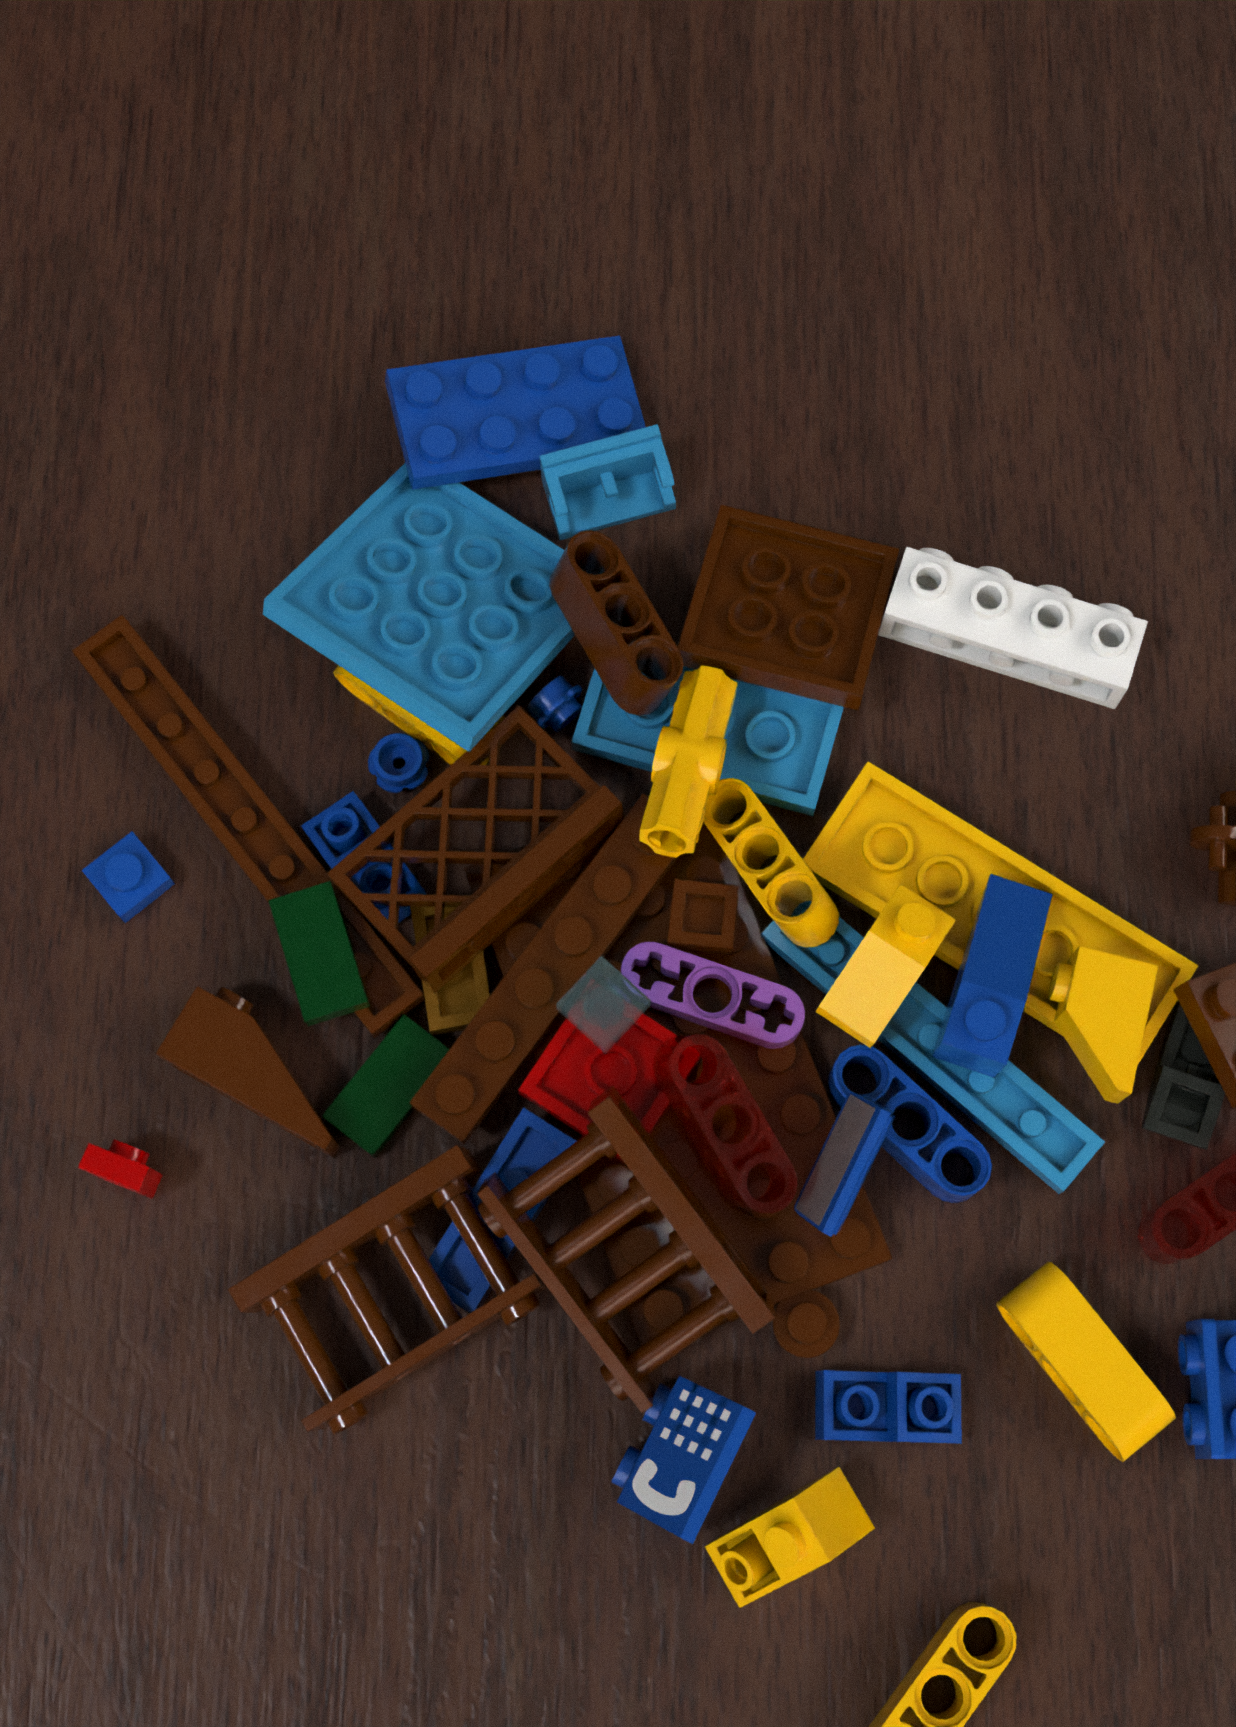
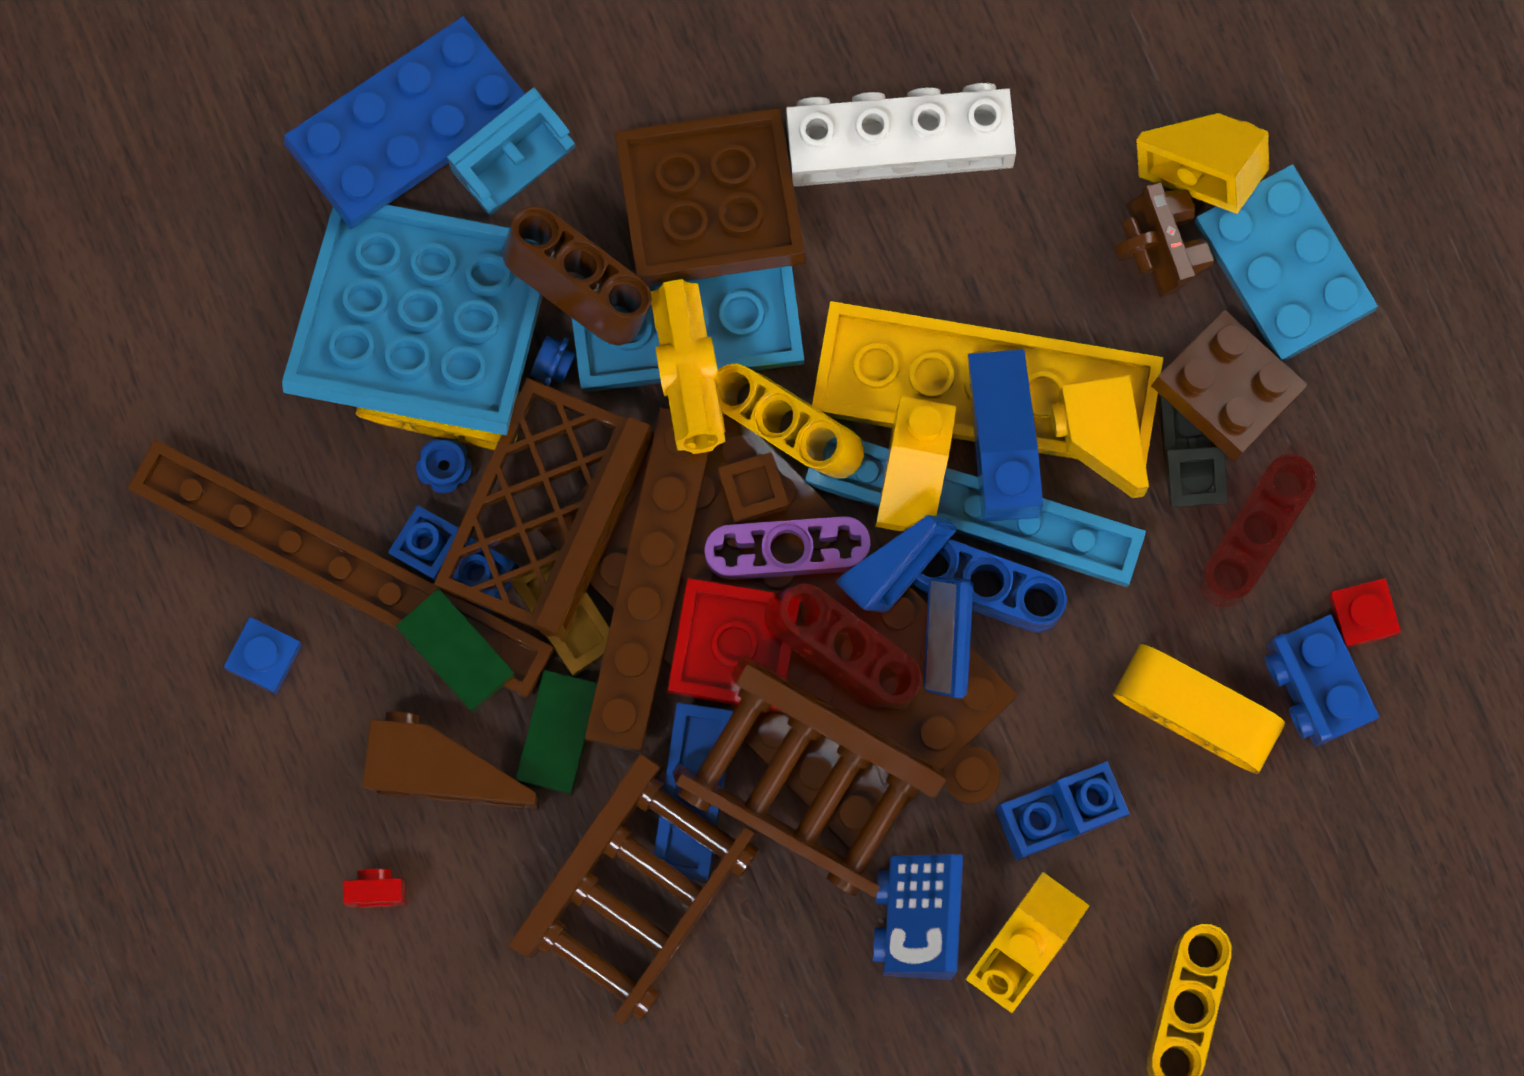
camera: 25 degrees left, 5 degrees up
(603, 1004) = (707, 594): clear light blue plate -> none
(812, 1063) = (890, 570): none -> blue slope

